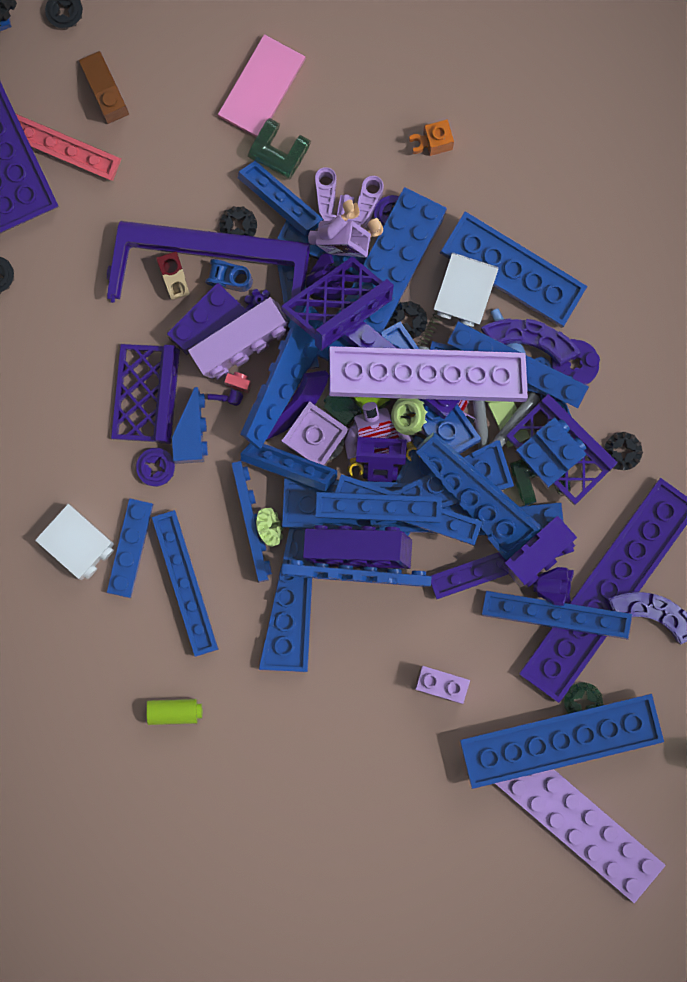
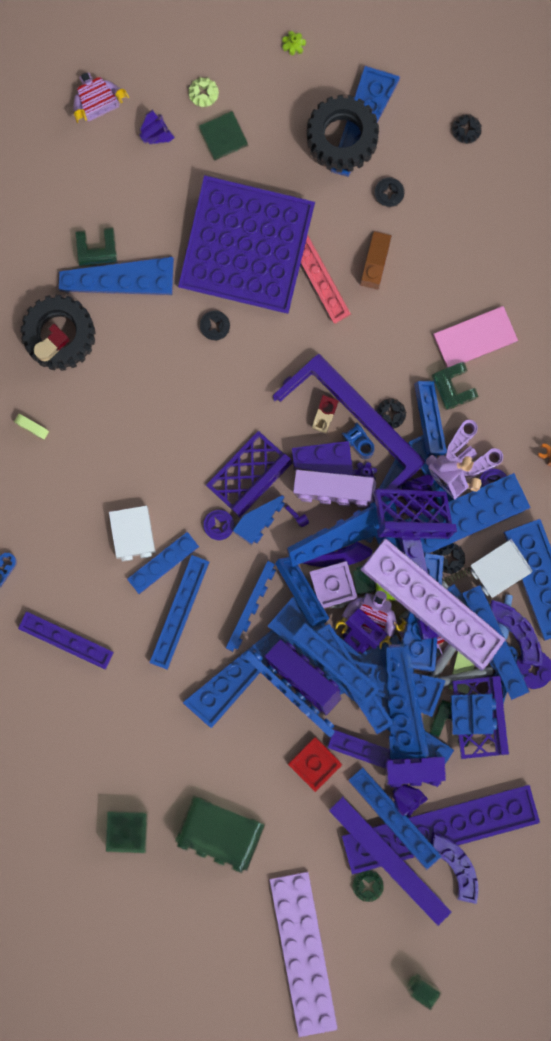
camera: 35 degrees right, 0 degrees up
(94, 701) = (66, 640): none -> dark purple plate
(173, 711) = (109, 686): lime brick -> none
(238, 381) = (312, 512): coral plate -> none
(268, 518) = (260, 613): yellowish green gear -> none
(305, 840) = (127, 831): none -> clear green brick
(398, 768) = (219, 834): none -> clear green windscreen
(405, 406) = (394, 625): yellowish green gear -> none
(437, 625) = (315, 764): none -> red plate
(442, 684) = (288, 804): lavender brick -> none
(561, 741) = (334, 899): blue plate -> none
(585, 660) = (390, 861): none -> dark purple tile
(632, 443) = (529, 749): black gear -> none

